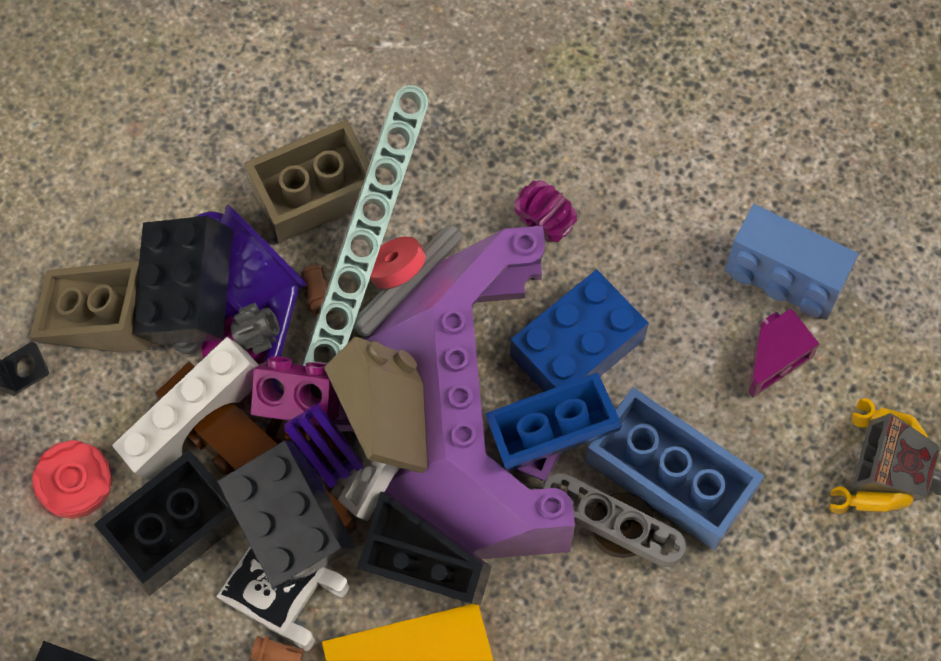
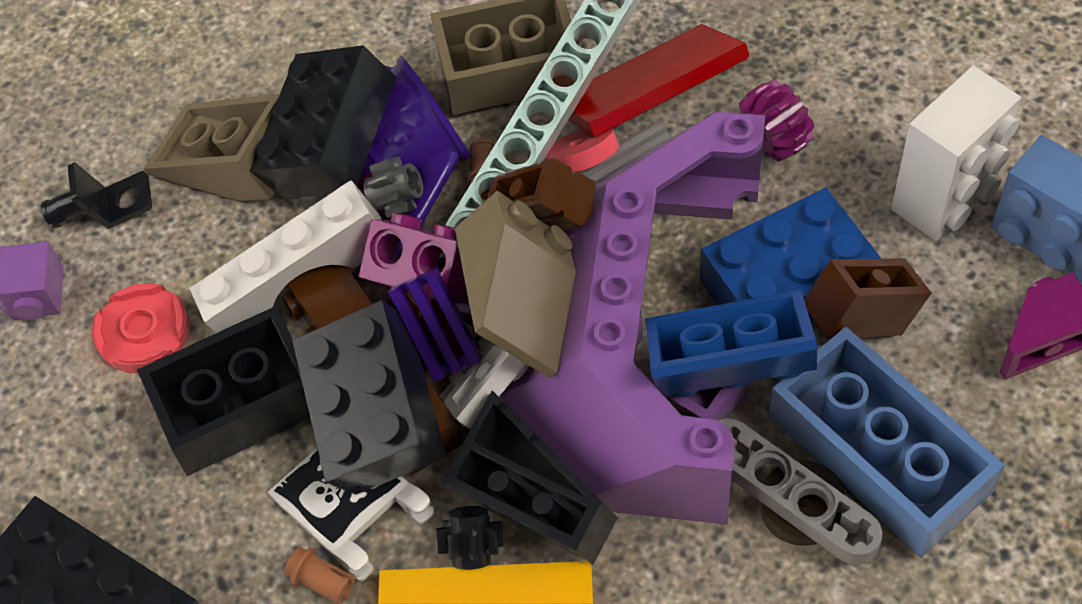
camera: 20 degrees right, 10 degrees down
(384, 603) = (469, 537): none -> black gear
(387, 323) = (550, 192): none -> reddish brown brick
(441, 185) = (656, 77): none -> red tile
(643, 357) = (866, 297): none -> reddish brown brick
(692, 227) = (955, 153): none -> white brick

